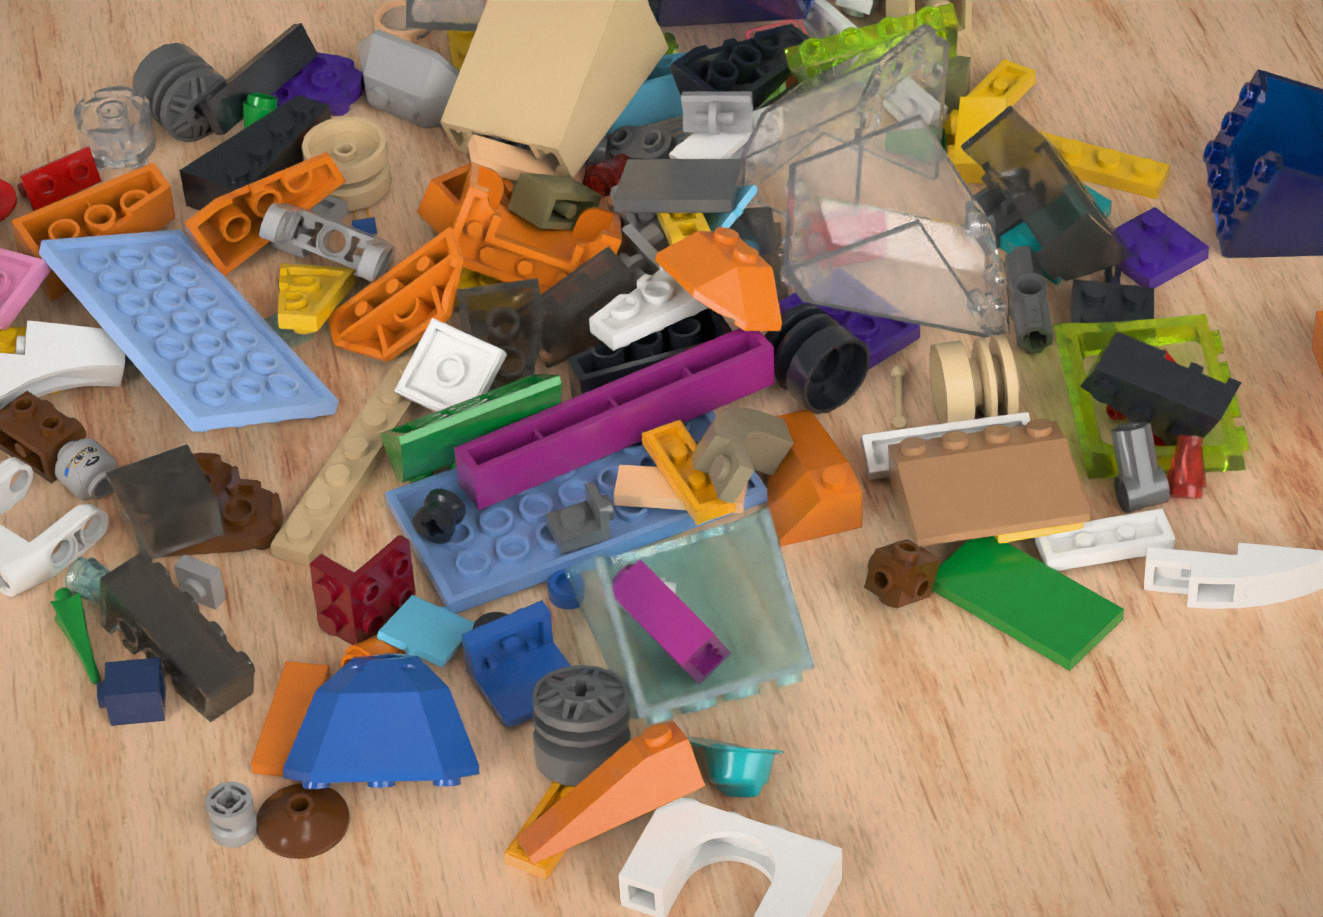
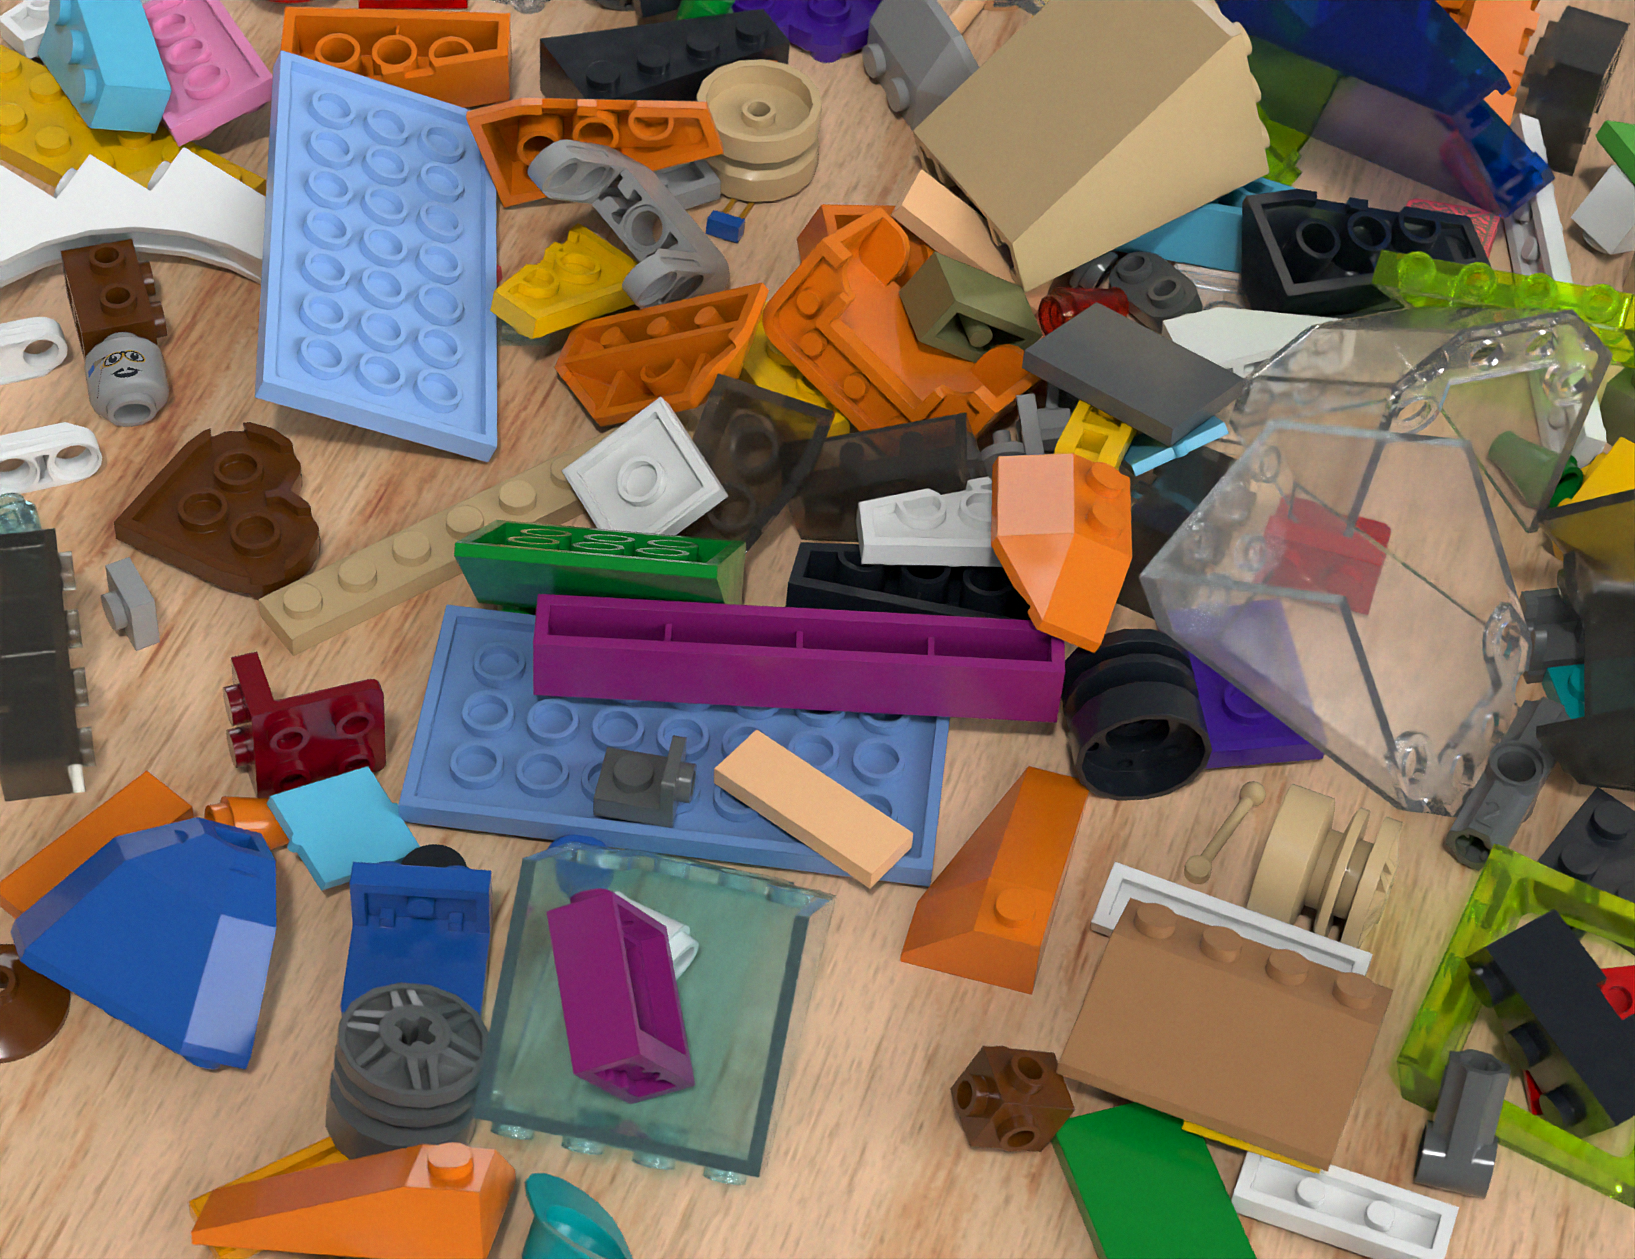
camera: 25 degrees right, 5 degrees up
(165, 502) = (156, 475): clear smoke brick -> none
(439, 516) = (470, 676): black wheel -> none
(672, 452) = (831, 791): light orange tile -> none
(717, 111) = (1259, 294): light grey hips -> none
(737, 446) = (923, 773): dark tan arch -> none
(1187, 469) = (1537, 1168): clear red cone -> none

